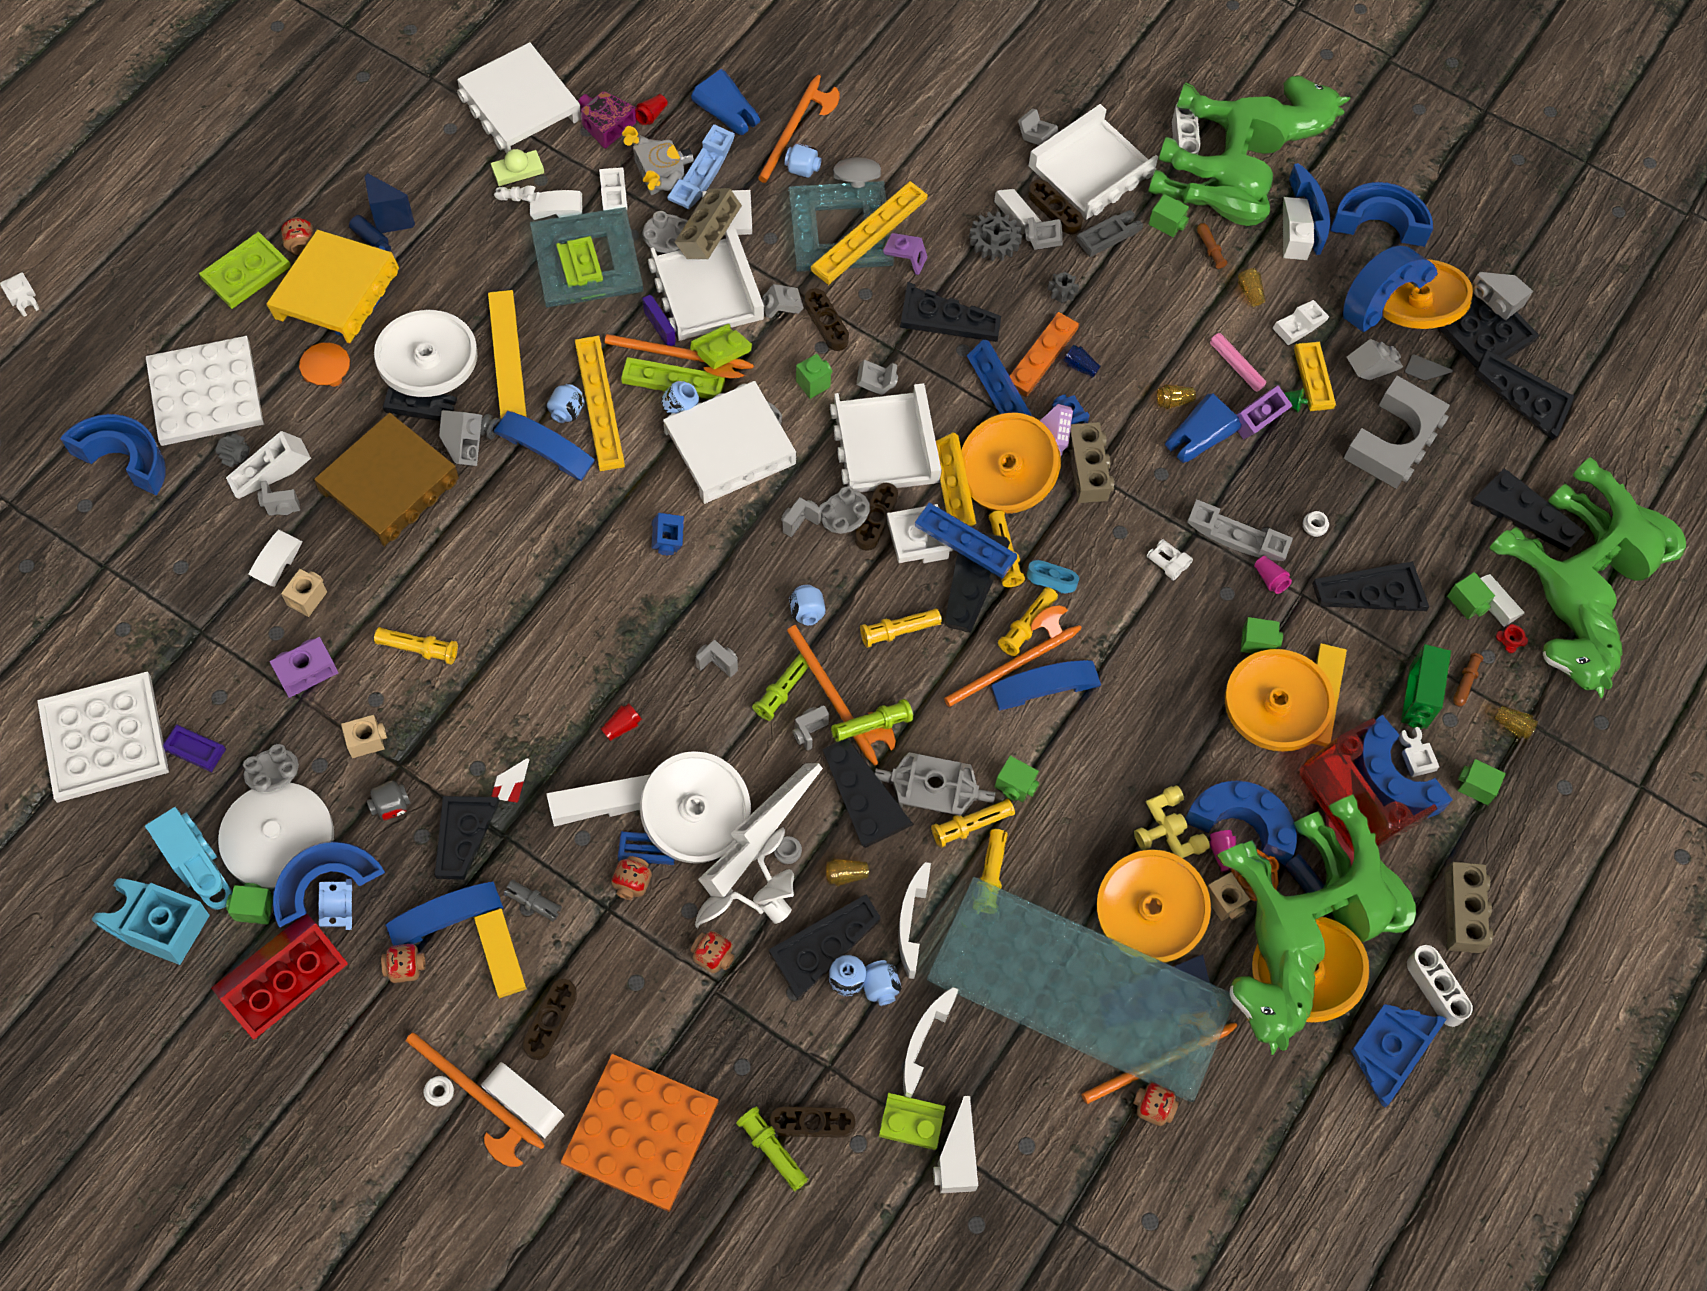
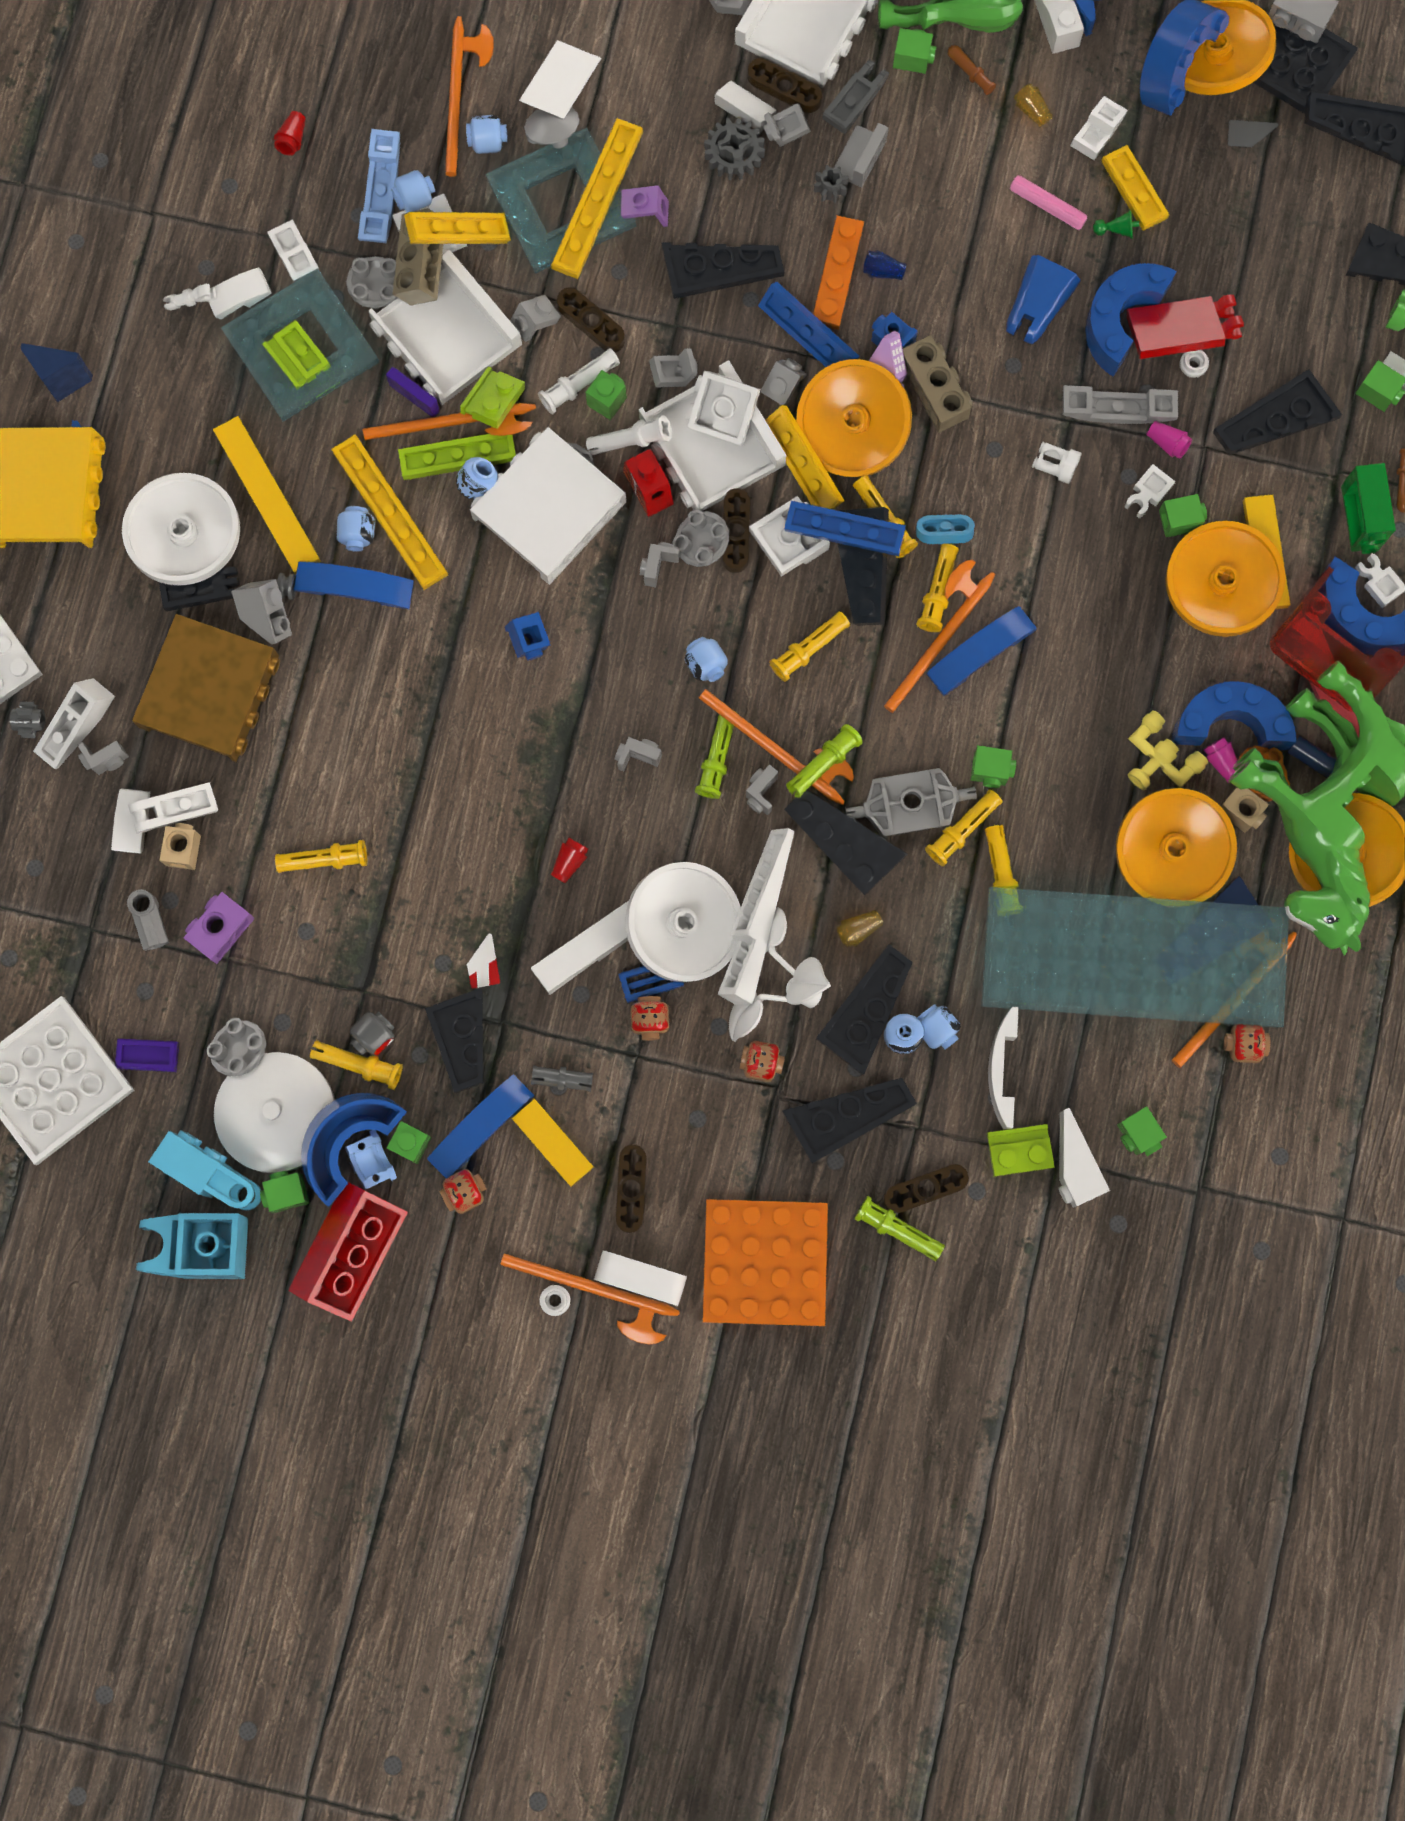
camera: 15 degrees left, 15 degrees up
(249, 640) = (149, 922): none -> light grey piece
(314, 558) = (174, 807): none -> white plate
(324, 364) = (75, 581): orange dish -> none
(355, 729) = (301, 976): tan brick -> none
(368, 232) = (50, 408): dark blue cylinder -> none
(373, 828) = (370, 1067): none -> yellow pin
(376, 902) = (409, 1142): none -> bright green brick
(517, 96) = (136, 176): white panel -> none
(517, 166) = (174, 263): yellowish green tile -> none
(606, 117) = (245, 163): magenta torso -> none
(657, 160) = (328, 197): light grey torso -> none
(724, 101) = (370, 93): blue piece -> none
(726, 177) = (413, 191): none -> light blue head
(747, 212) = (457, 228): none -> yellow tile
(759, 1030) = (839, 1120): none -> black wing
(785, 361) = (568, 387): none -> white pin
(788, 850) = (795, 929): light grey plate -> none
(819, 445) = (646, 479): none -> red torso
(827, 411) = (641, 434): none -> white pin
(878, 142) = (560, 79): none -> white sticker
(903, 415) = (722, 407): none -> white plate
(910, 950) = (953, 987): white slope -> none
(963, 416) = (783, 380): none -> light grey bracket
(1028, 1146) = (1141, 1133): none -> bright green brick
(1099, 275) = (861, 153): none -> light grey panel
(1173, 396) = (995, 270): clear yellow cone -> none
(1240, 607) = (1151, 489): none -> white plate
(1262, 411) = (1097, 255): medium lavender brick -> none
(1267, 448) = (1123, 289): none -> blue brick
(1317, 491) = (1183, 326): none -> tile
(1374, 360) = (1193, 145): light grey slope -> none
(1392, 461) = (1266, 192): light grey arch -> none

